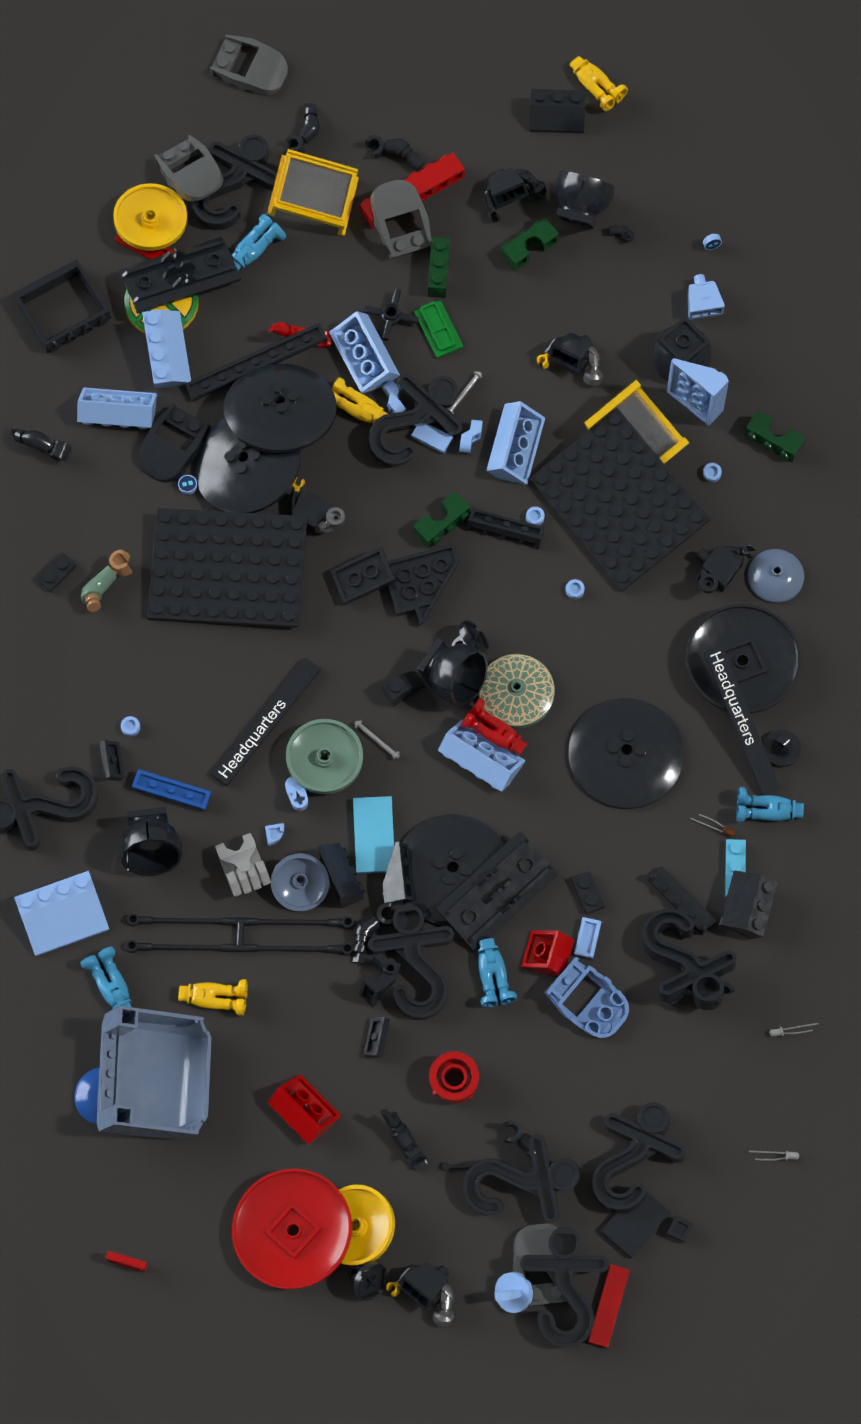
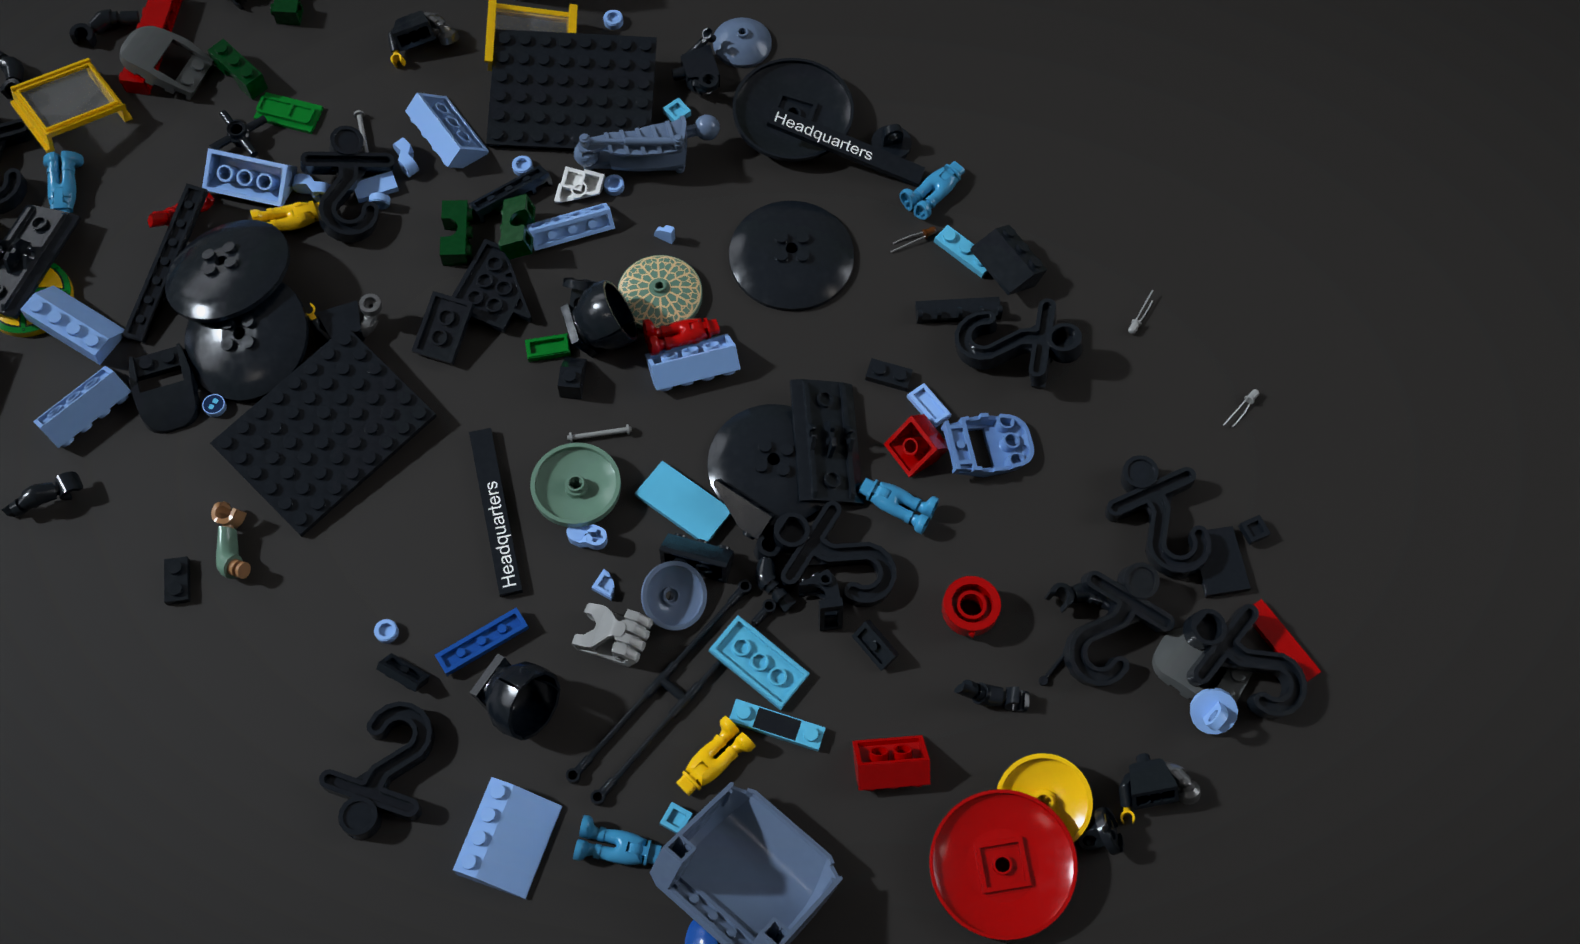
camera: 55 degrees left, 5 degrees down
(157, 1002) = (675, 818): none -> medium azure plate
(270, 1018) = (777, 725): none -> medium azure plate
(302, 972) = (759, 662): none -> medium azure tile
(408, 651) = (547, 347): none -> green tile
(422, 450) = (380, 199): none -> light blue tile
(467, 563) = (515, 237): none -> dark green arch
(515, 590) = (571, 226): none -> light blue fence
(552, 566) = (579, 184): none -> white slope
(566, 657) = (665, 233): none -> light blue tile
(618, 589) = (645, 149): none -> sand blue piece
(672, 581) = (676, 109): none -> medium azure plate

